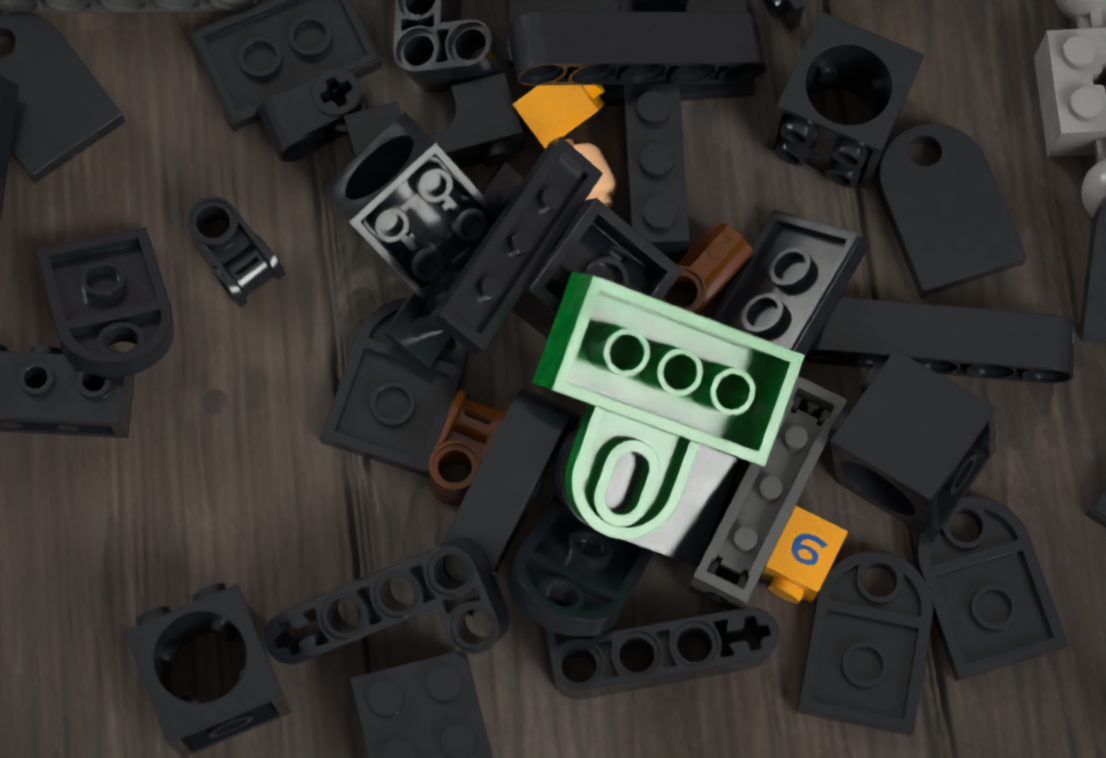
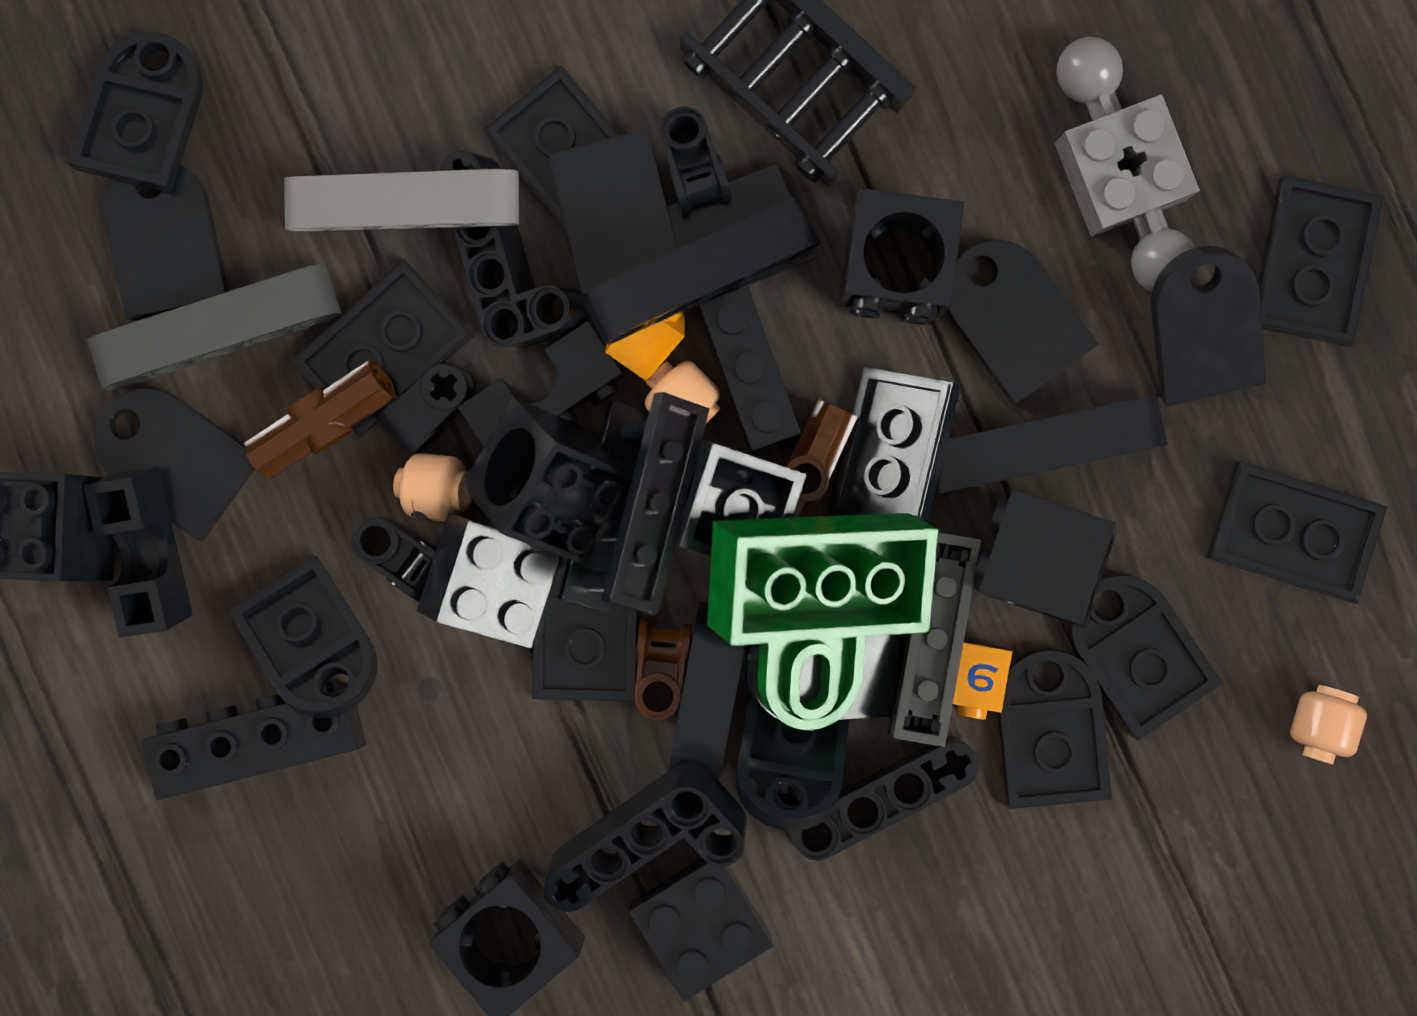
camera: 10 degrees left, 15 degrees up
(198, 90) = (320, 419): none -> reddish brown piece
(290, 193) = (432, 487): none -> light nougat head
(318, 294) = (487, 582): none -> brick

